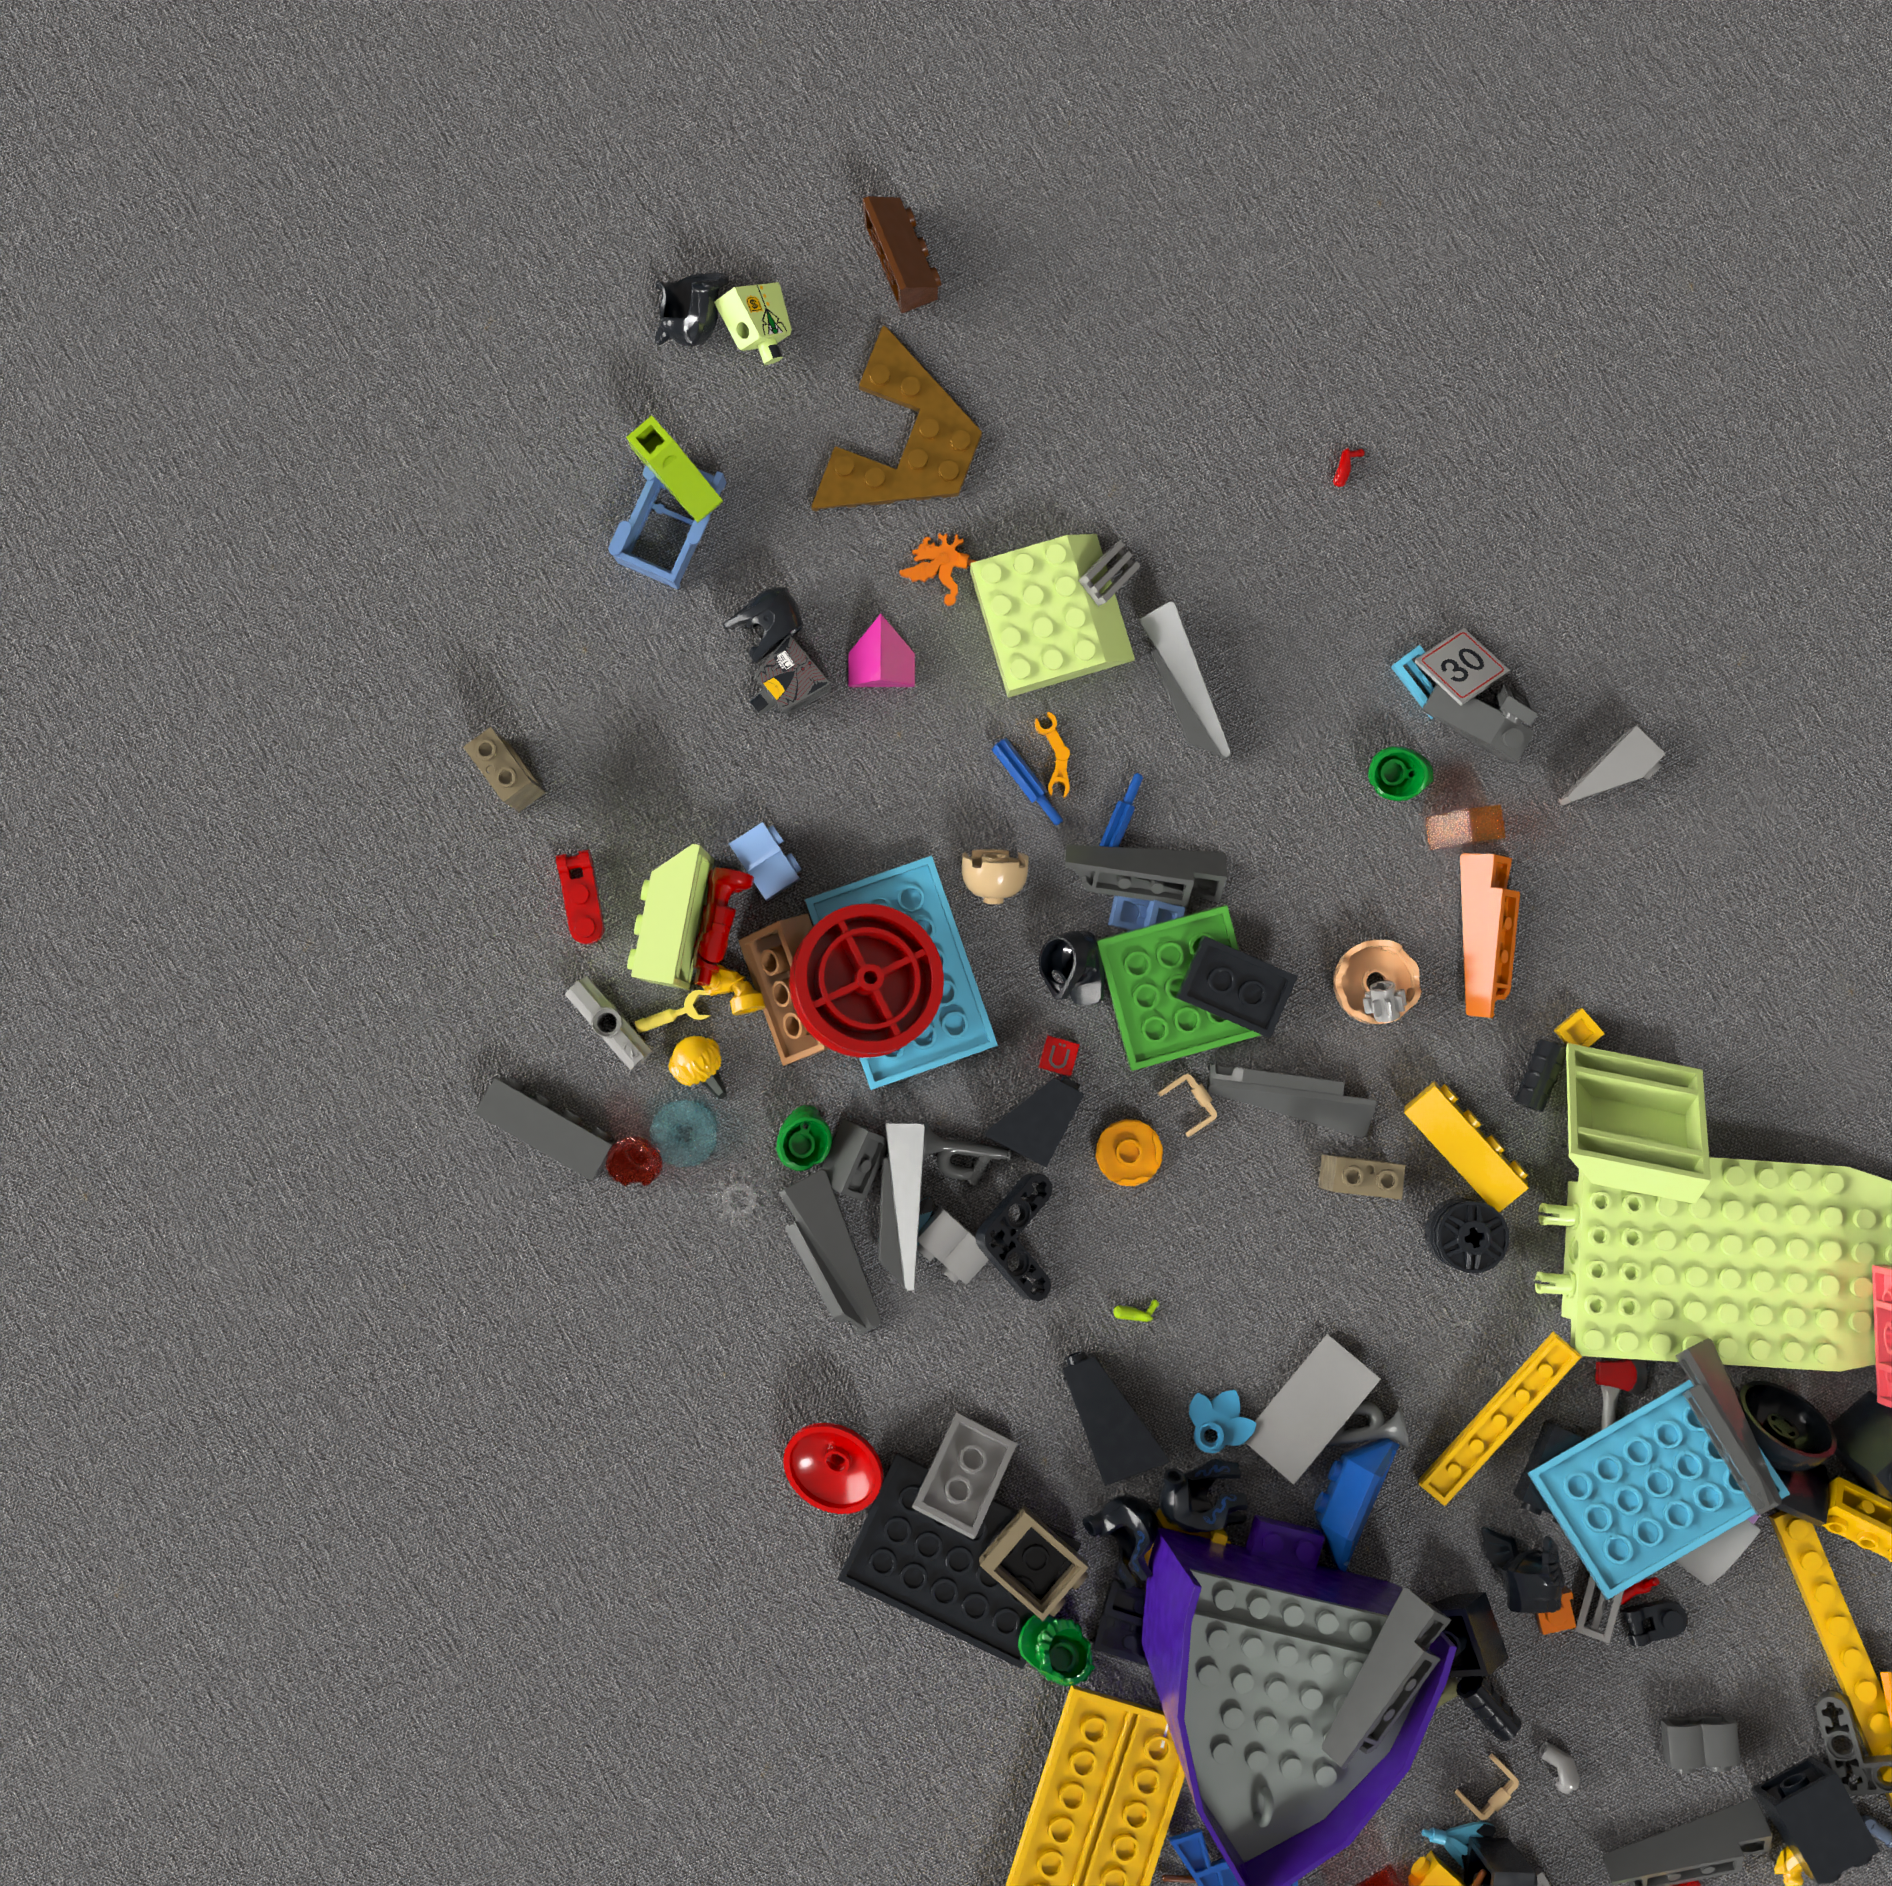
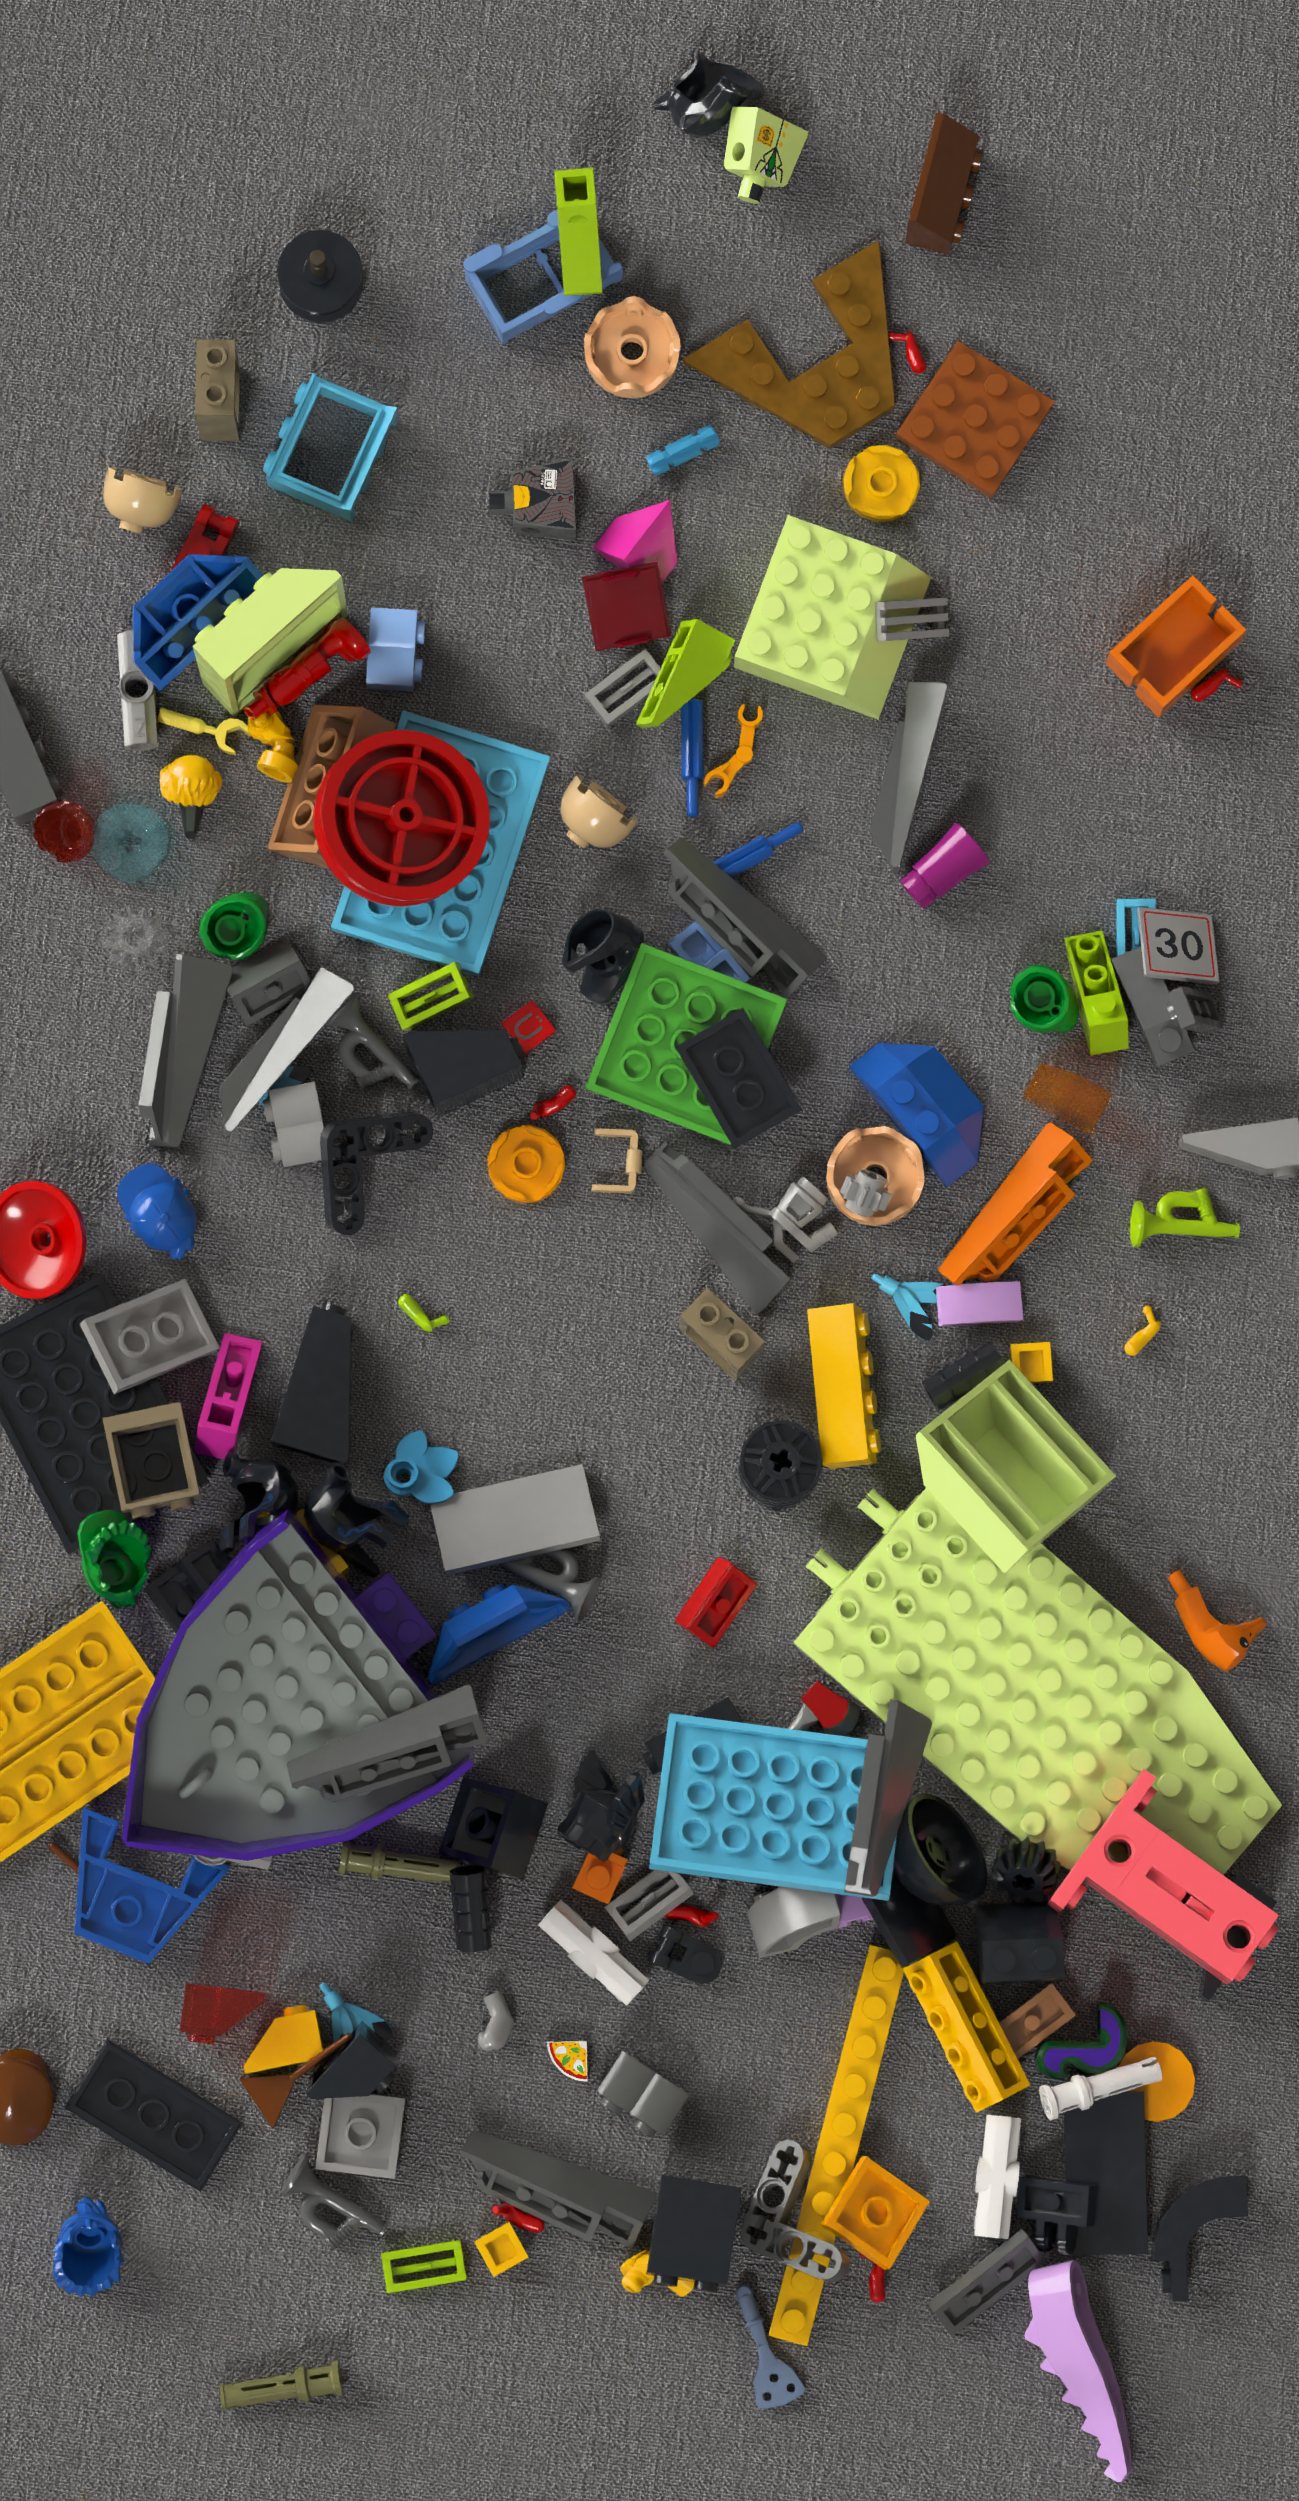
camera: 35 degrees right, 5 degrees down
(507, 887) = (139, 500): none -> tan cylinder
(515, 635) = (320, 276): none -> black wheel
(578, 760) = (359, 474): none -> medium azure window
(601, 943) = (184, 605): none -> blue wedge
(768, 503) = (637, 323): none -> light nougat plate
(777, 615) = (573, 434): black helmet -> none
(859, 571) = (683, 450): none -> dark azure axle
(903, 1379) = (158, 1209): none -> blue hair
(904, 710) = (626, 606): none -> dark red piece
(938, 794) = (604, 685): none -> light grey tile
(942, 559) = (770, 497): orange piece -> none
(964, 384) = (913, 352): none -> red piece
(981, 722) = (691, 664): none -> lime slope
(990, 1062) = (460, 983): none -> lime tile
(1013, 493) = (881, 483): none -> yellow tile
(1043, 401) = (974, 419): none -> dark orange plate
(1048, 1472) = (227, 1396): none -> dark pink slope
(1116, 1096) = (549, 1106): none -> red piece
(1261, 730) = (944, 867): none -> magenta plant
(1305, 458) = (1175, 646): none -> orange piece
(1338, 1045) = (795, 1210): none -> light grey piece
(1370, 905) = (925, 1104): none -> blue wedge
(1444, 748) = (1097, 993): none -> lime slope
(1457, 1046) = (906, 1298): none -> medium azure piece
(1487, 1358) = (716, 1602): none -> red slope
(1498, 1799) = (417, 2008): tan piece -> none
(1499, 1418) = (681, 1655): yellow tile -> none
(1512, 1017) = (979, 1303): none -> lavender slope
(1584, 878) = (1145, 1224): none -> lime piece
(1592, 1669) = (593, 1952): none -> white piece
(1629, 1752) = (570, 2058): none -> tile
(1638, 954) = (1141, 1338): none -> yellow piece
(1845, 1389) = (1026, 1869): none -> black gear
(1855, 1131) = (1219, 1643): none -> orange animal

